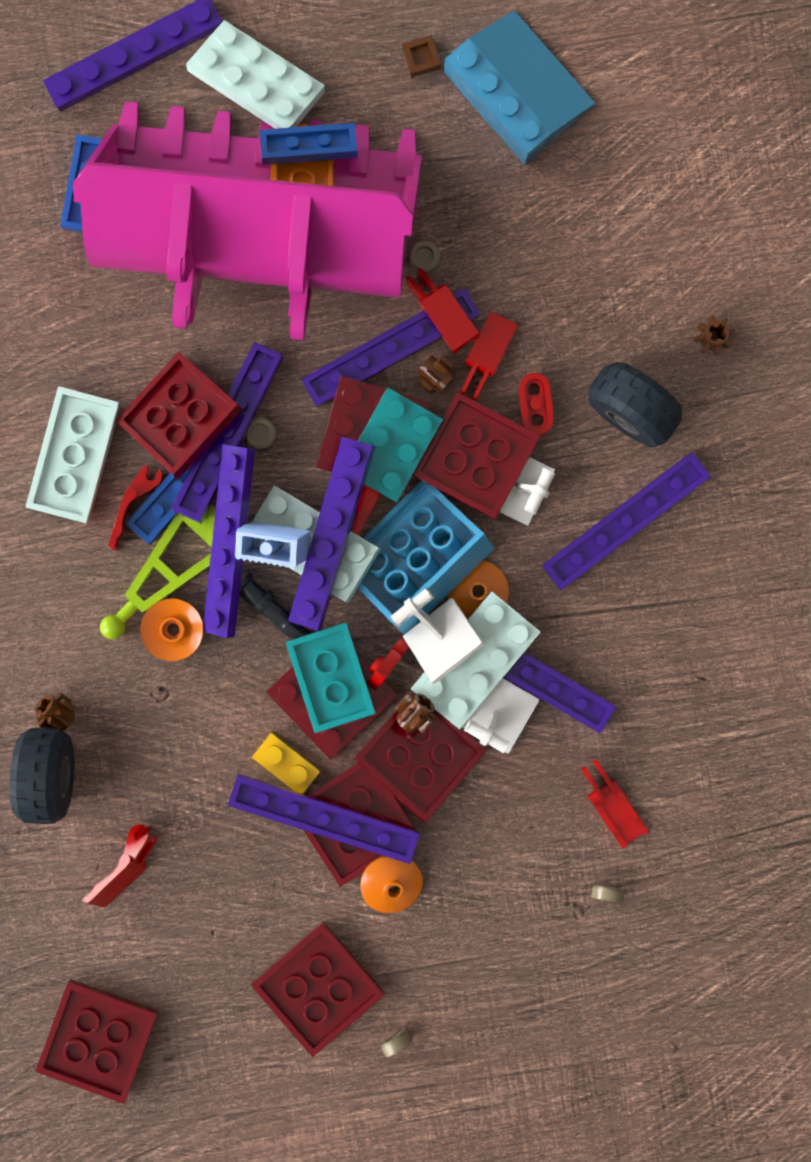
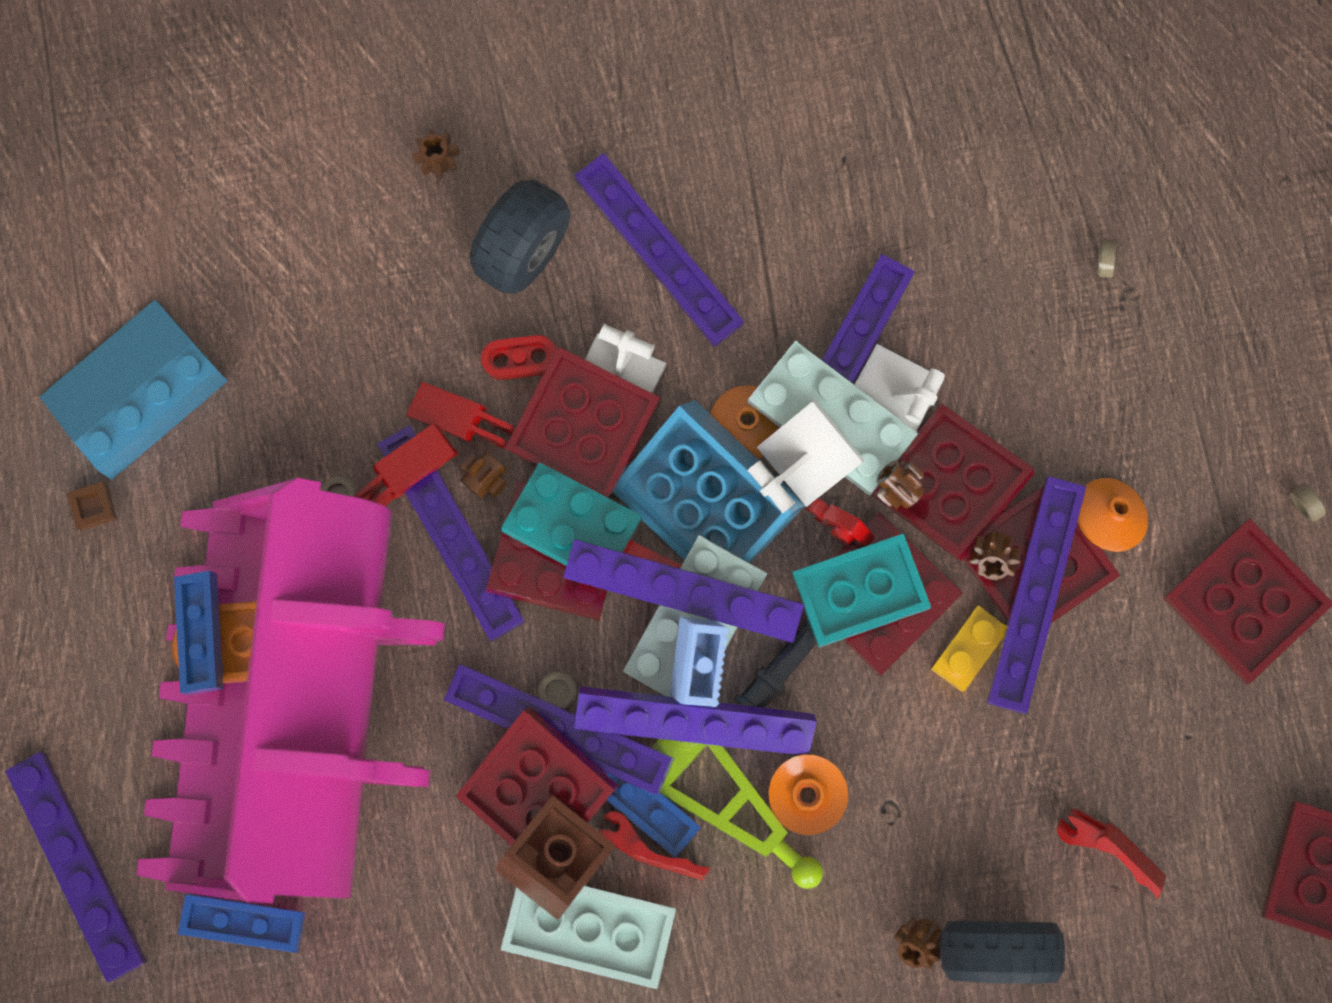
camera: 80 degrees left, 10 degrees down
(123, 428) = (554, 857): none -> copper slope
(255, 77) = (112, 707): light aqua plate -> none
(354, 787) = (995, 556): none -> reddish brown gear
(614, 808) = (1001, 255): red arm -> none

